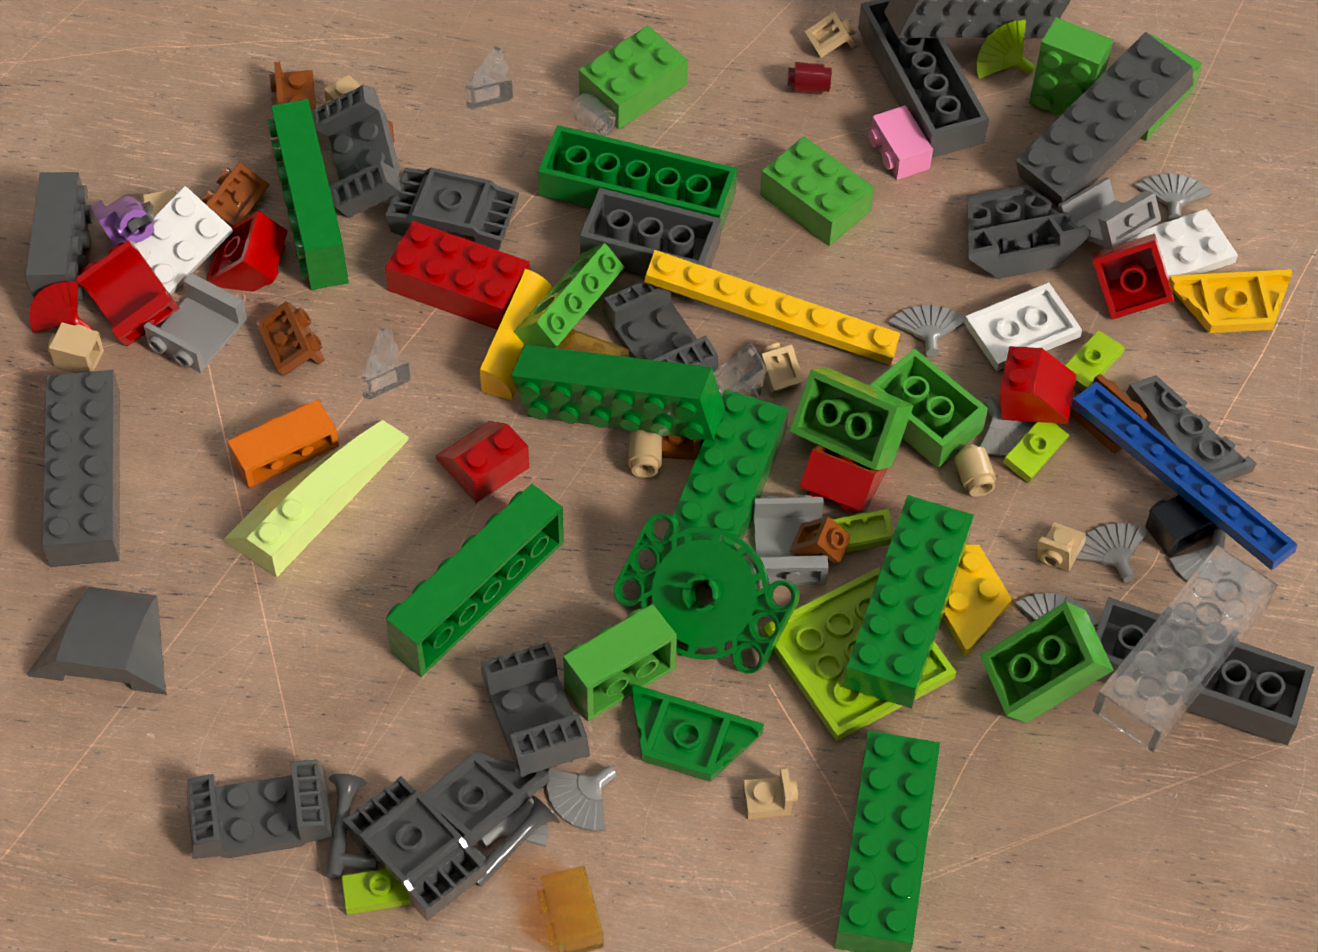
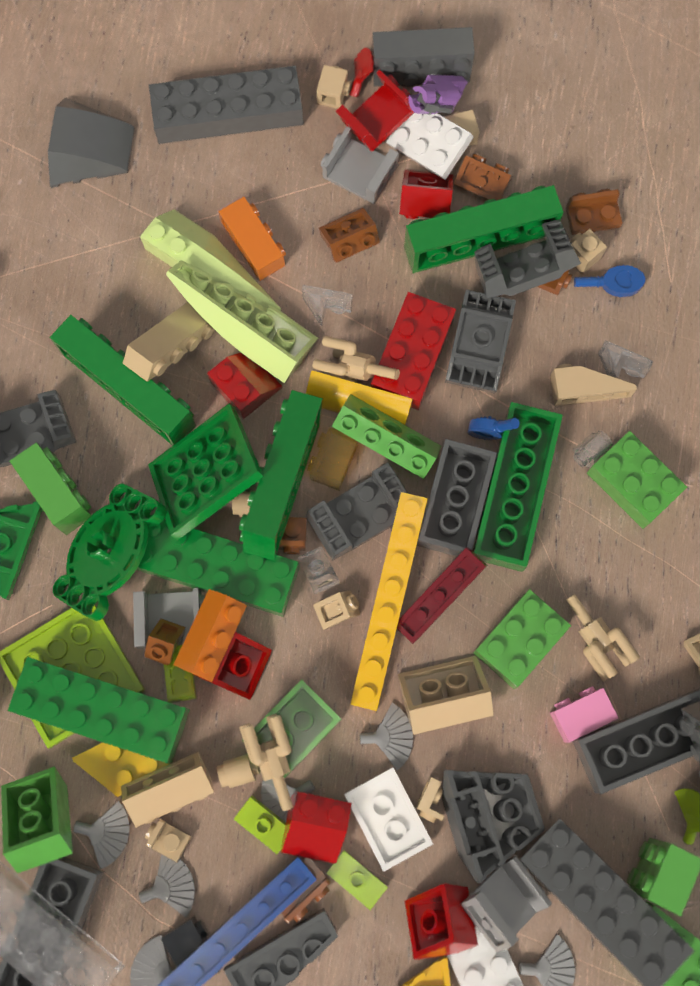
camera: 90 degrees right, 20 degrees up
(387, 77) = (617, 281): none -> blue piece
(411, 438) = (256, 331): none -> yellowish green wedge
(428, 514) = (167, 342): none -> tan brick
(472, 327) = (352, 364): none -> tan plant
(514, 118) = (584, 385): none -> tan slope
(566, 195) = (490, 428): none -> blue piece
(609, 473) = (204, 471): none -> green plate
(765, 251) = (440, 595): none -> dark red plate
(809, 78) = (652, 633): dark red brick -> none
(817, 472) = (210, 635): none -> orange brick
(819, 119) = (602, 640): none -> tan plant
(851, 418) = (269, 664): bright green brick -> none
(880, 264) = (445, 695): none -> tan slope
(960, 406) = (271, 756): none -> tan plant
(997, 286) = (429, 795): none -> tan bracket
(1002, 539) = (167, 789): none -> tan brick

